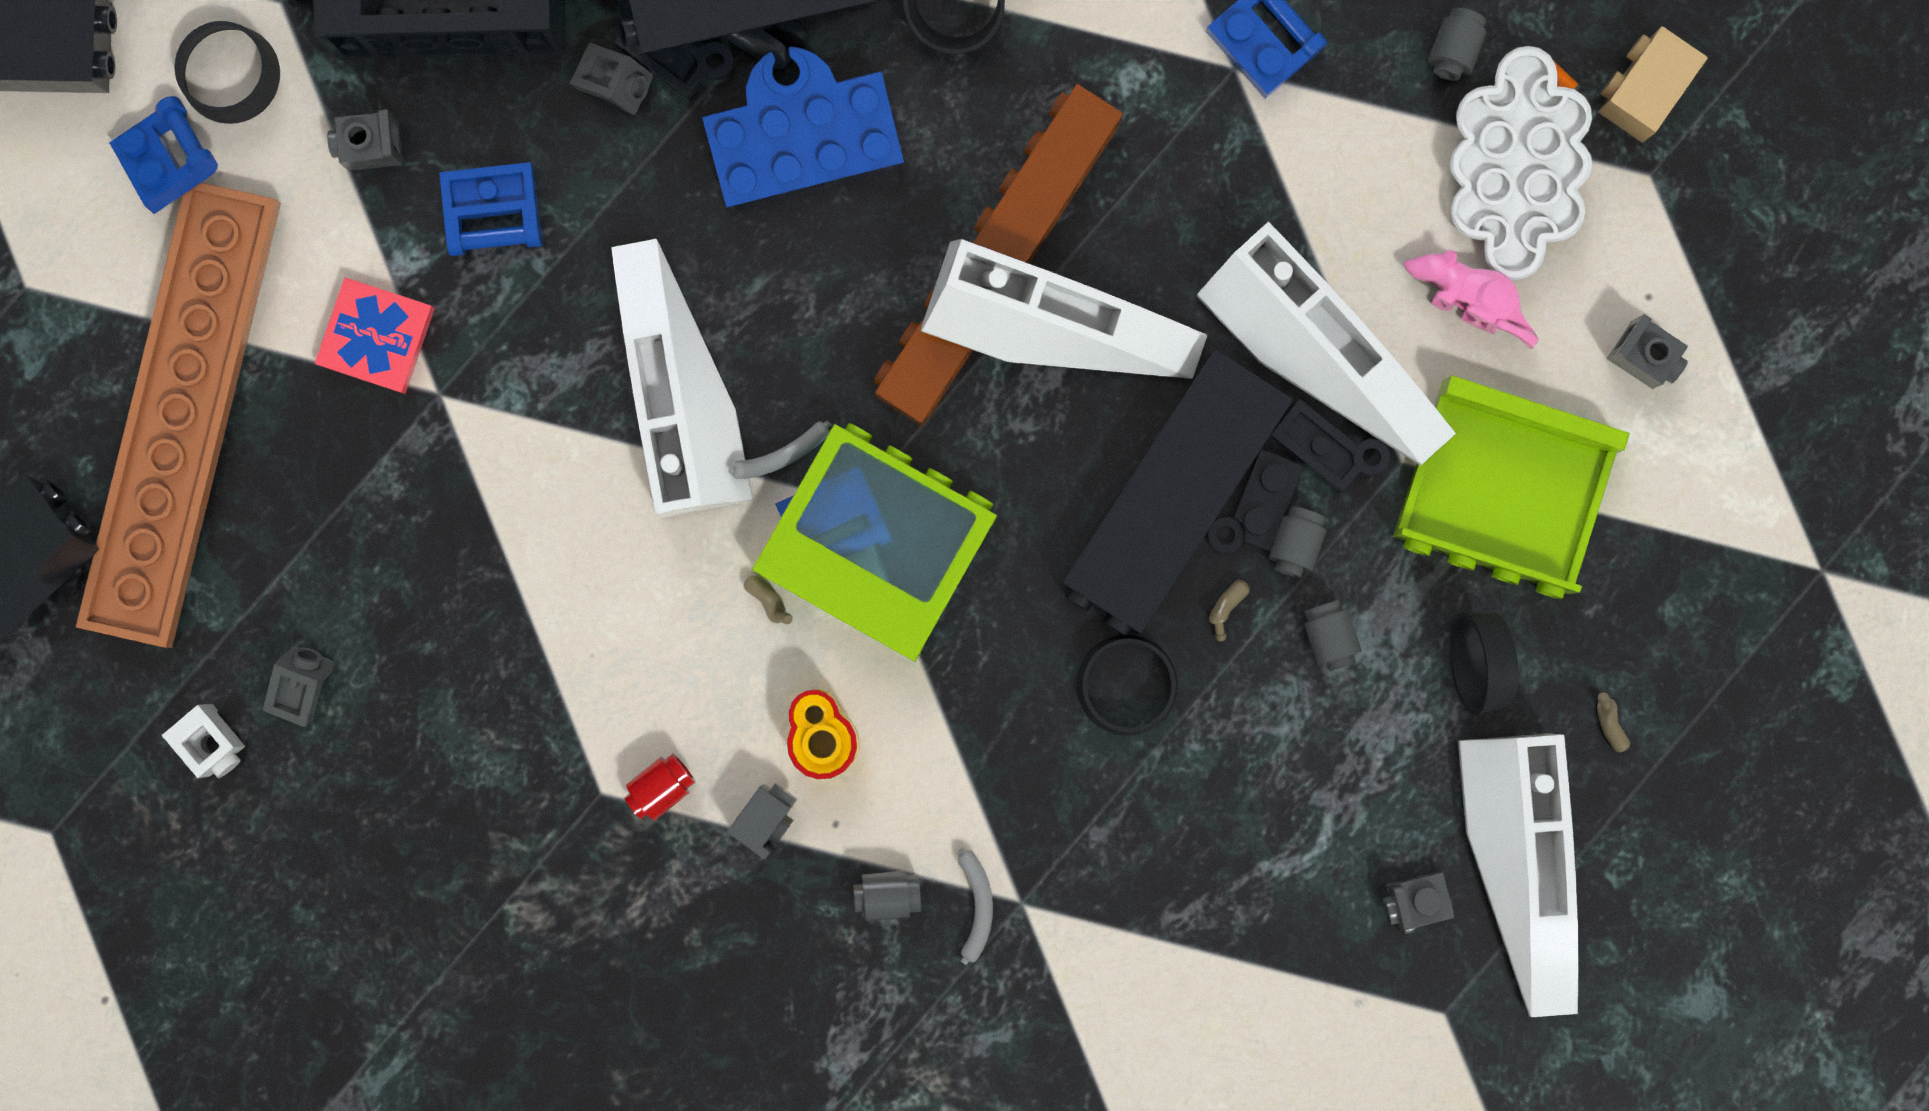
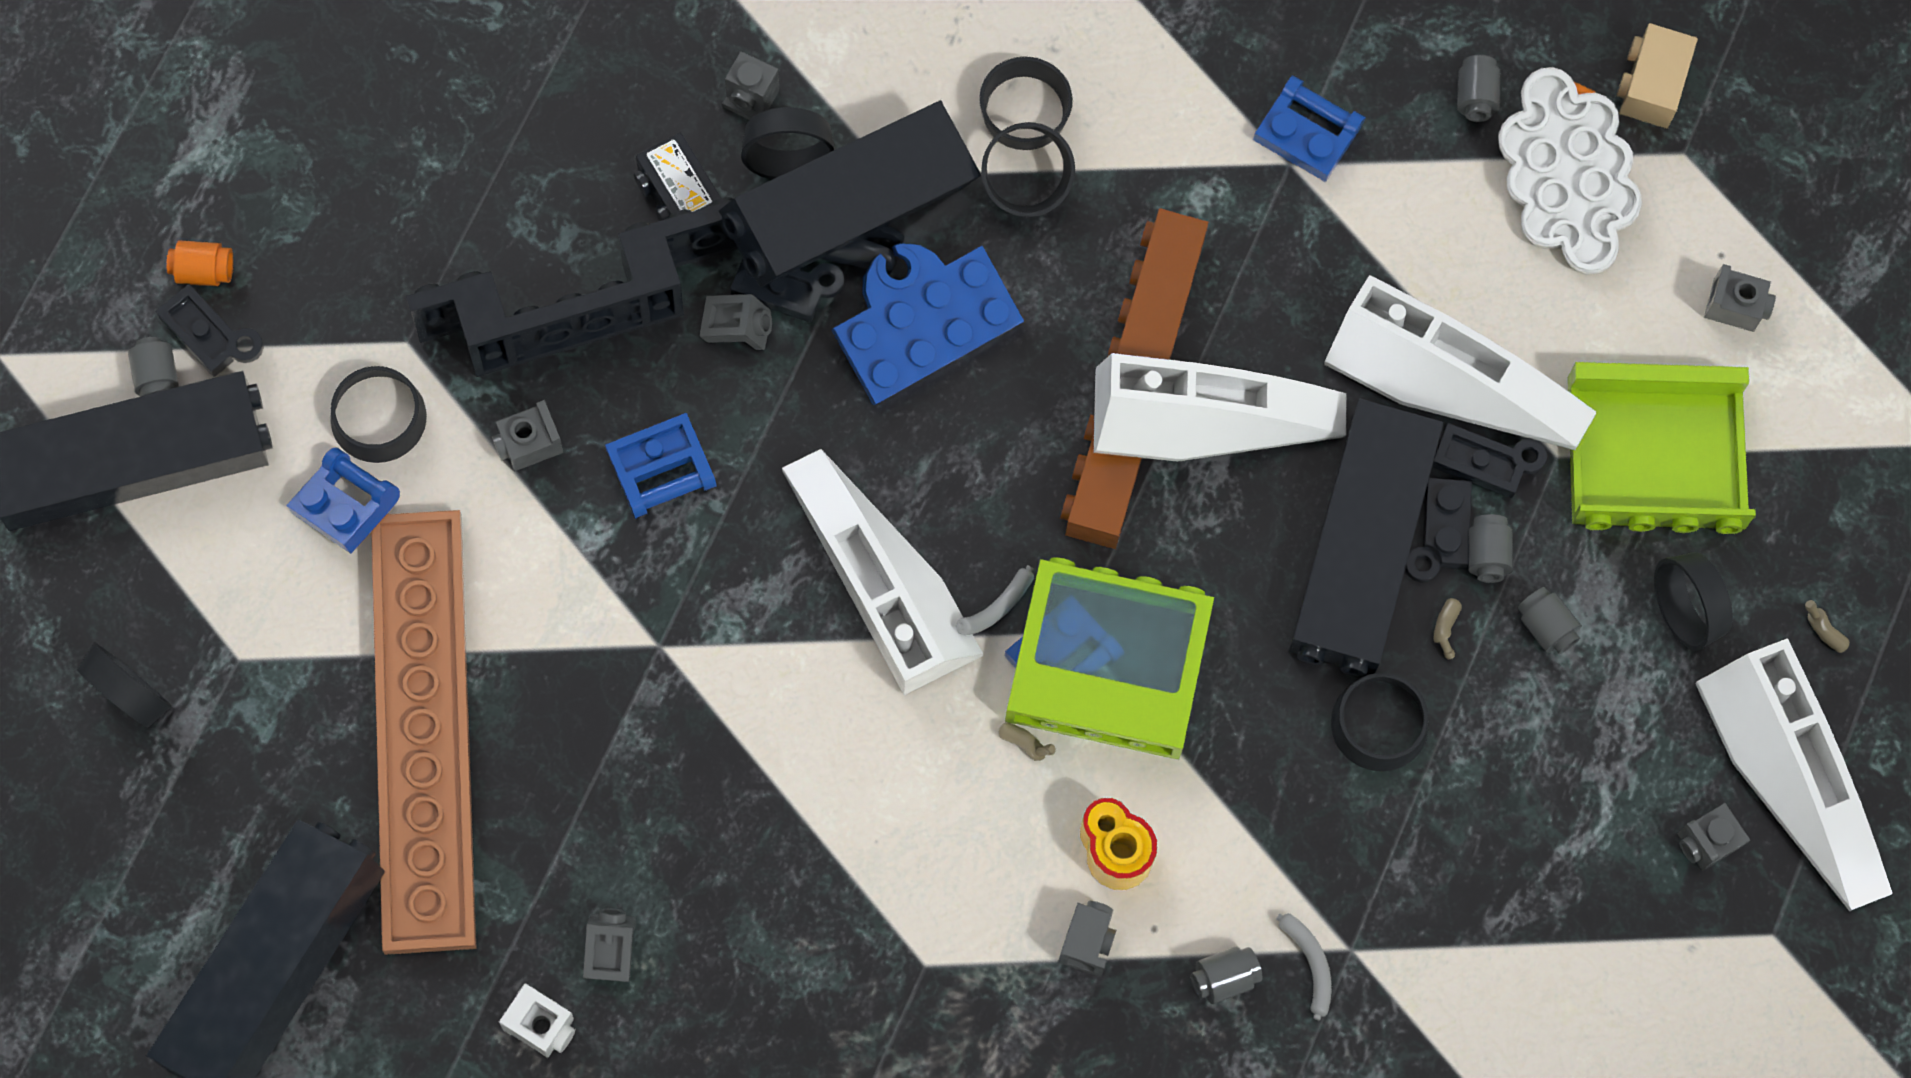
camera: 25 degrees left, 15 degrees down
(374, 335) = (585, 608): coral tile -> none
(659, 787) = (981, 937): red brick -> none
(1485, 295) = (1576, 291): bright pink animal -> none

